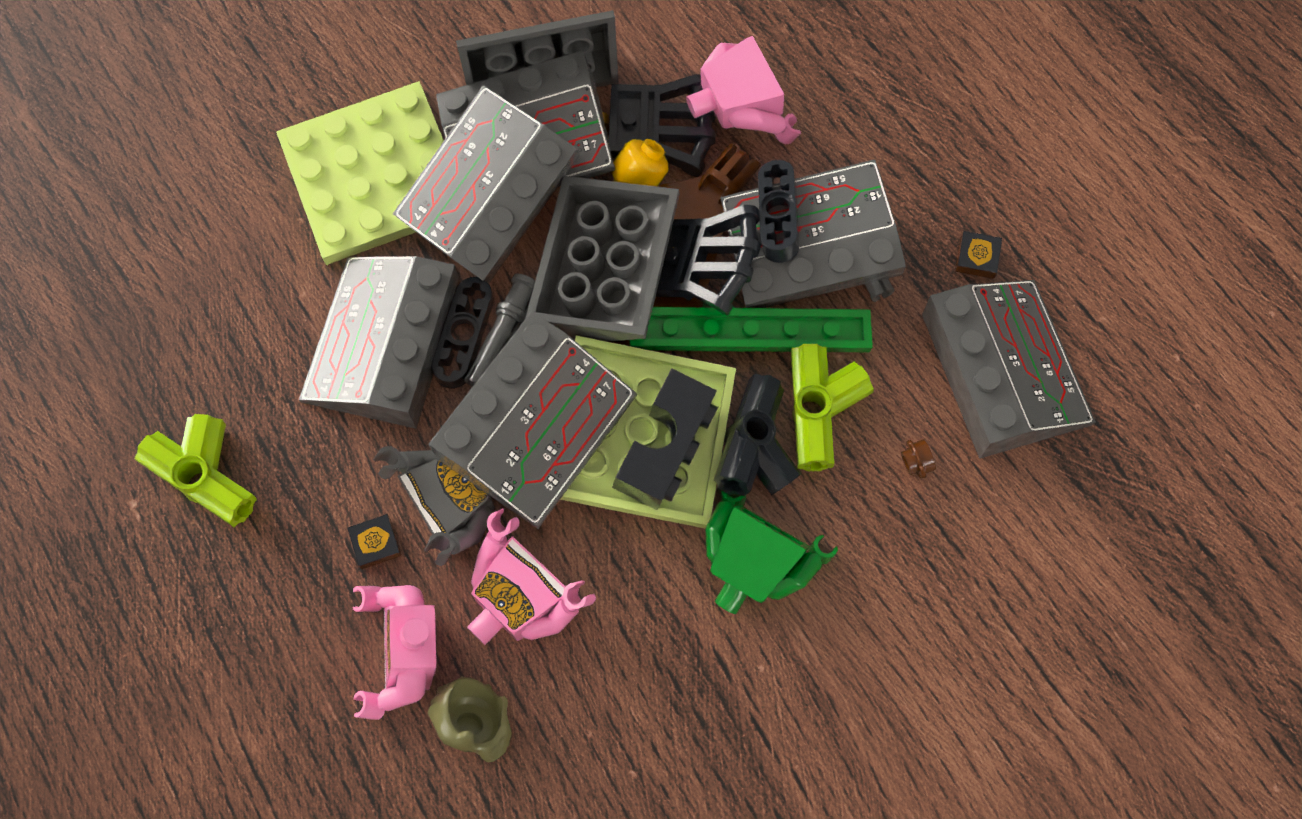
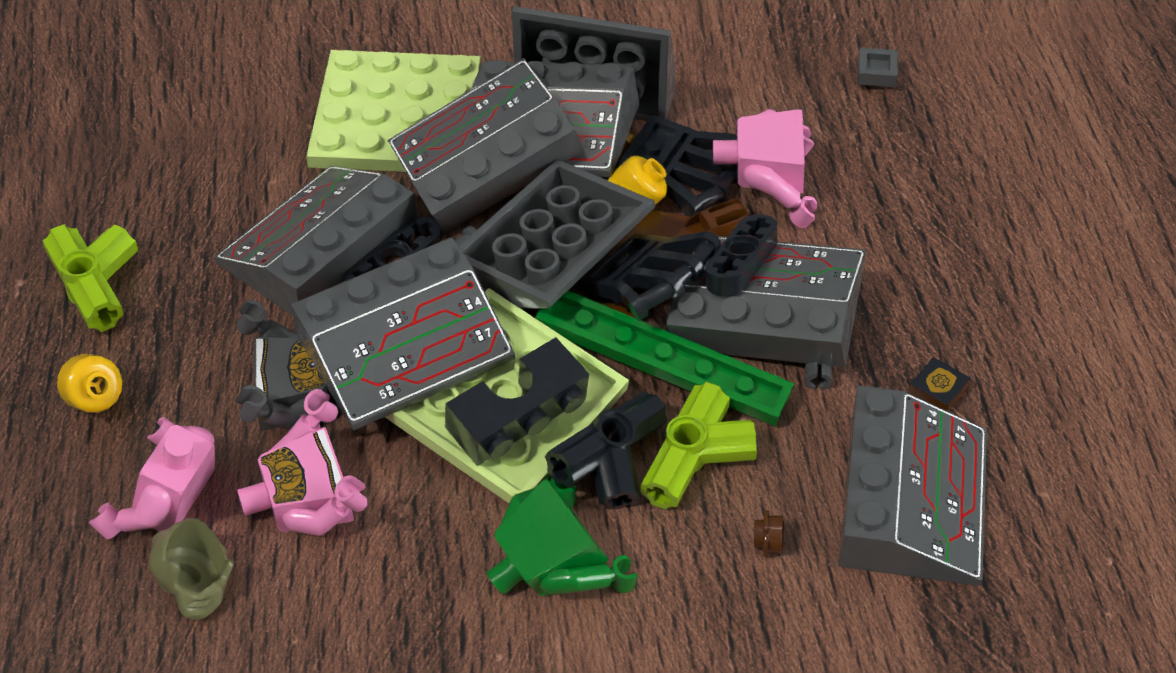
camera: 25 degrees right, 20 degrees down
(273, 585) = (76, 378): none -> yellow head
(374, 541) = (203, 393): black tile -> none

